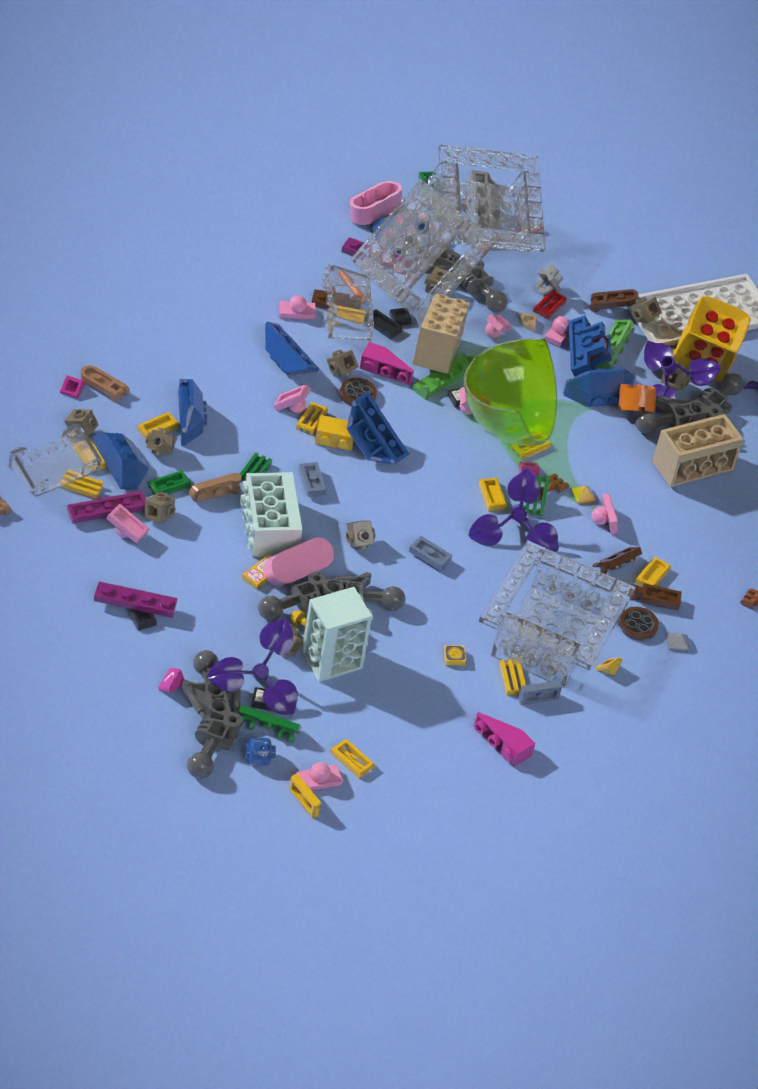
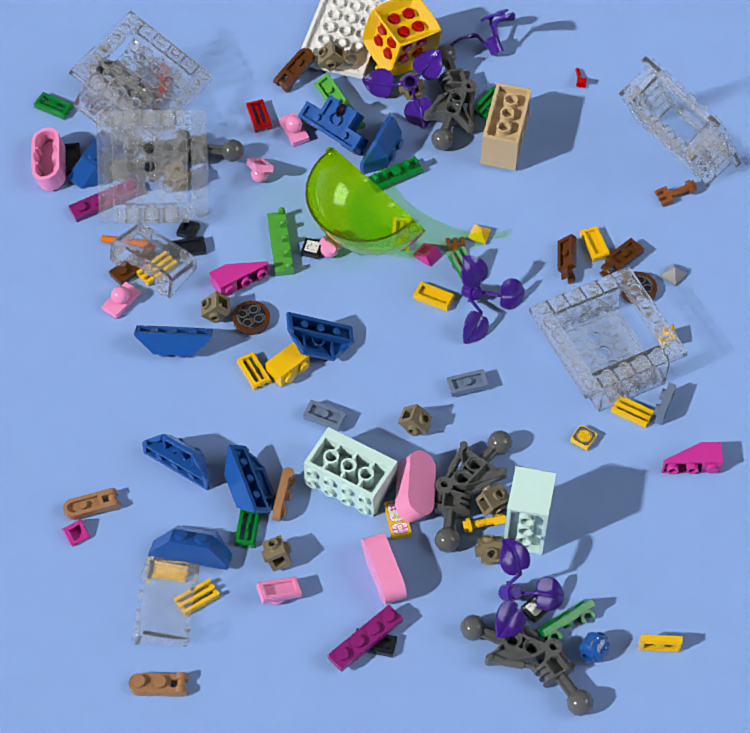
camera: 45 degrees left, 10 degrees up
(83, 417) = (131, 552): dark tan brick -> none
(103, 507) = (241, 594): magenta plate -> none
(163, 421) = (173, 494): yellow tile -> none
(167, 442) = (201, 503): dark tan brick -> none
(172, 680) = (473, 666): dark pink slope -> none
(206, 579) = (383, 568): none -> bright pink plant
(209, 459) = (248, 481): none -> blue wedge
(260, 460) = (280, 437): green tile -> none
(293, 399) = (228, 371): bright pink tile -> none
(321, 776) = (645, 618): bright pink tile -> none
(349, 759) = (627, 587): yellow tile -> none
(441, 333) = (248, 214): tan brick -> none
(528, 321) = (265, 143): tan tile -> none
(550, 278) = (239, 94): light grey hips -> none
(584, 413) = (397, 173): none -> green plate
(606, 514) = (516, 232): bright pink tile -> none
(637, 398) = (419, 128): orange brick -> none

